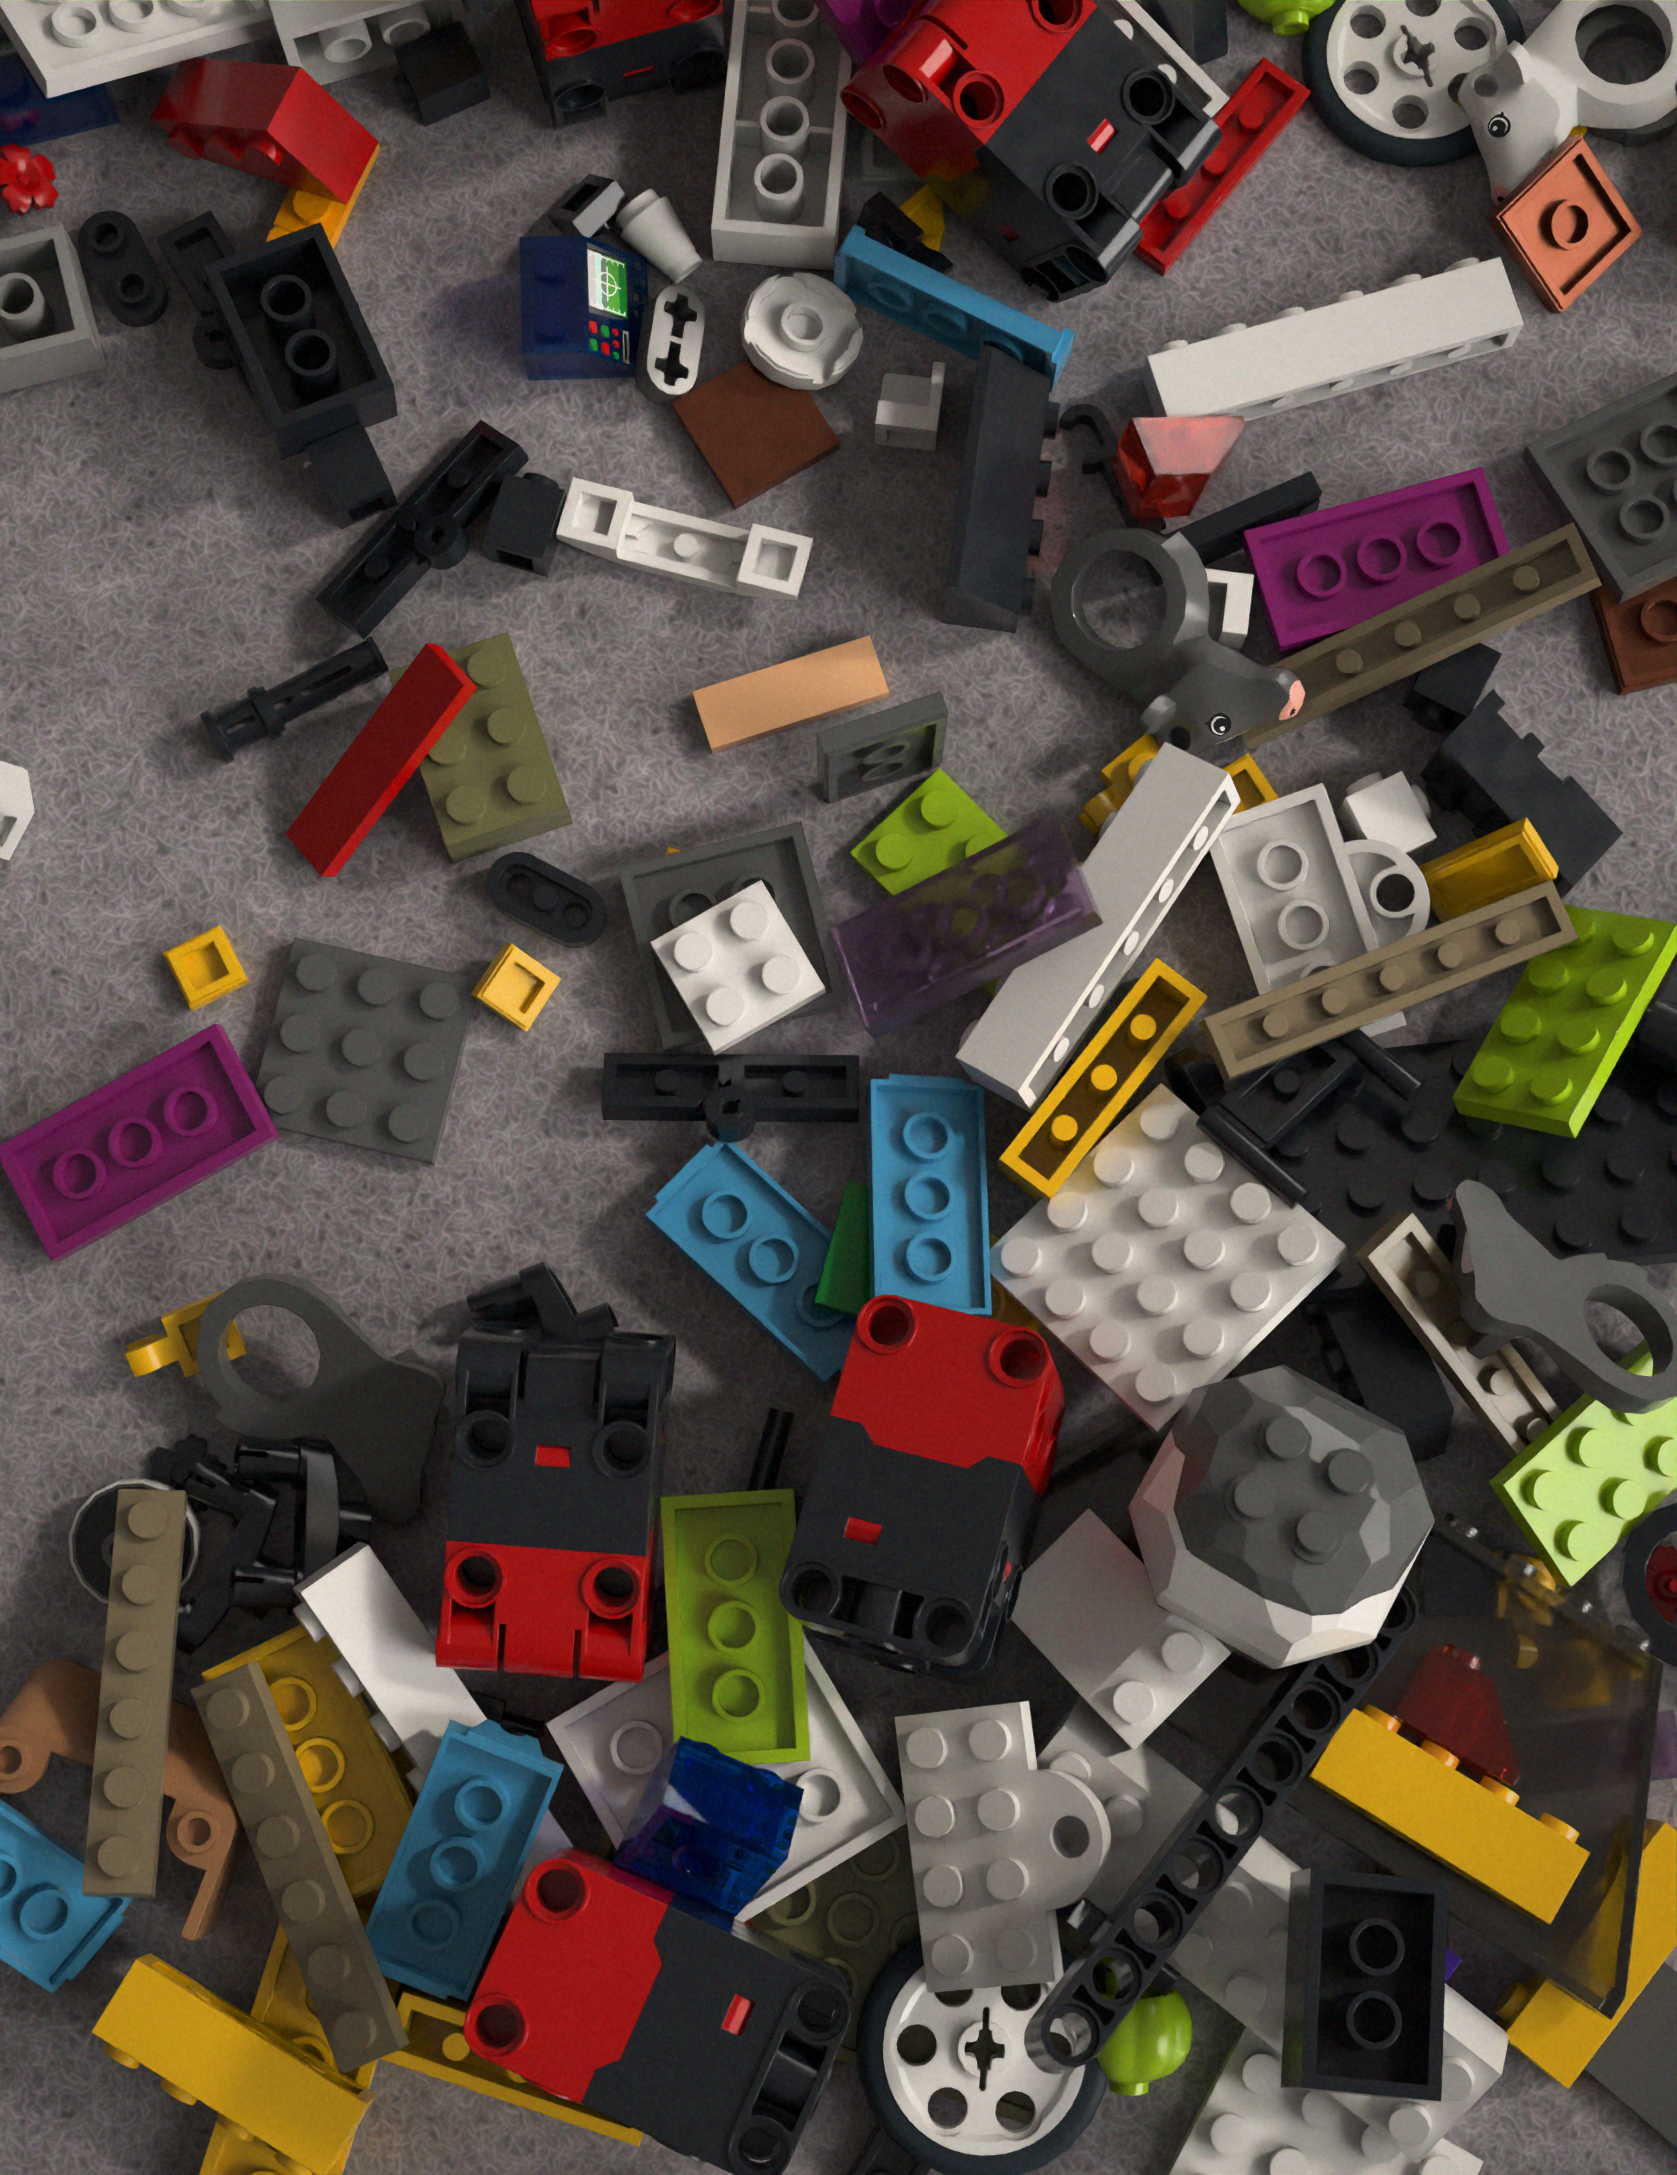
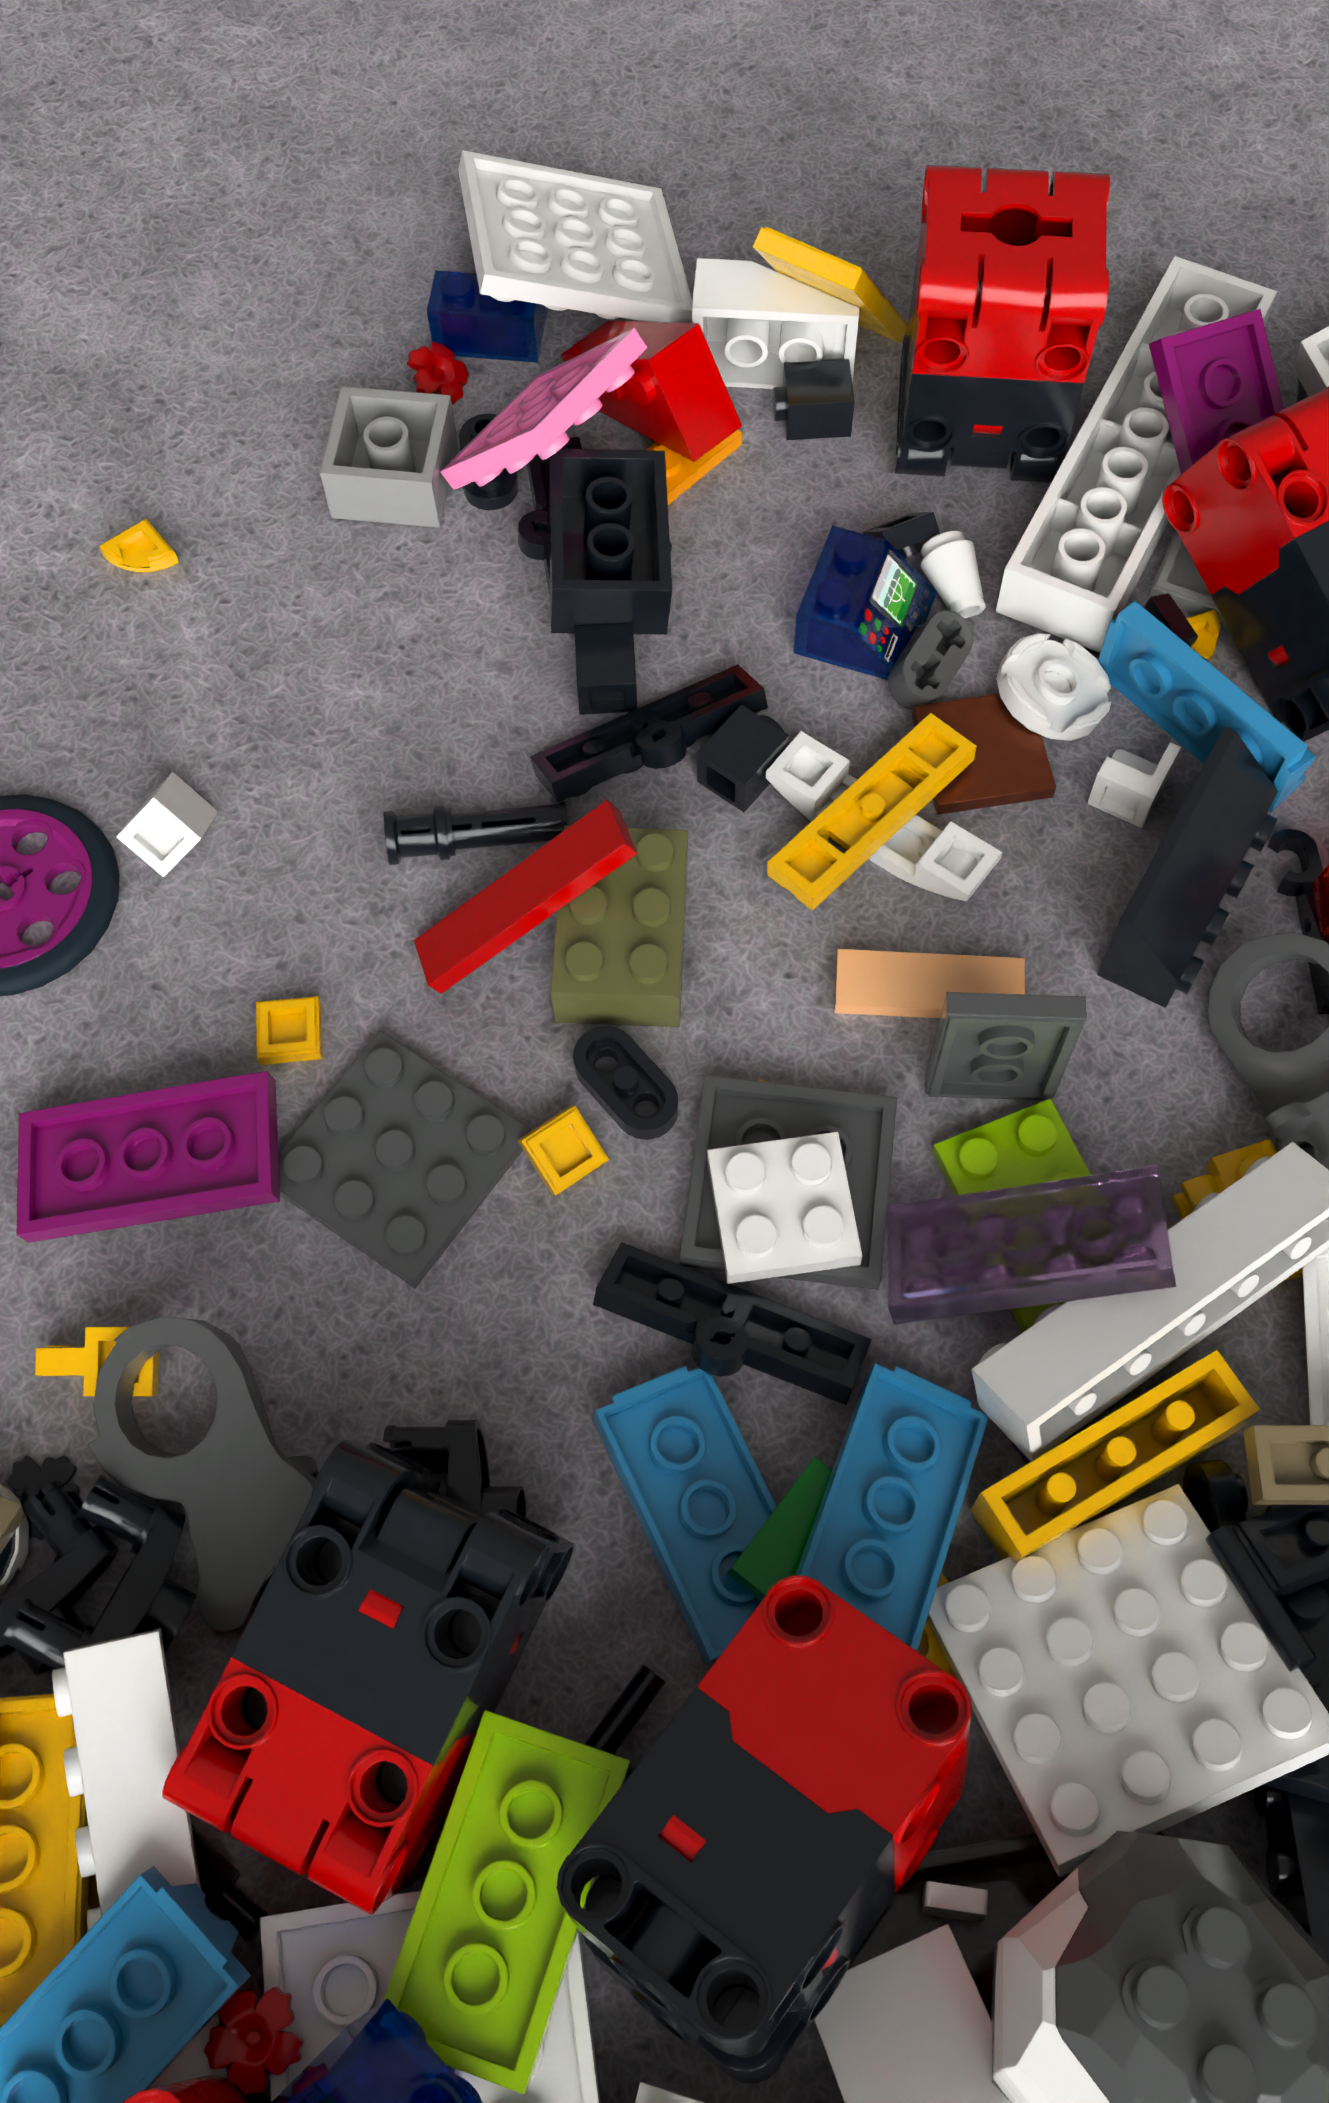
camera: 25 degrees right, 15 degrees down
(175, 216) = (544, 411): none -> bright pink plate
(584, 1810) = (254, 2039): none -> red plant
(673, 537) = (871, 811): none -> yellow hinge
(1089, 1488) = (954, 1901): none -> white piece

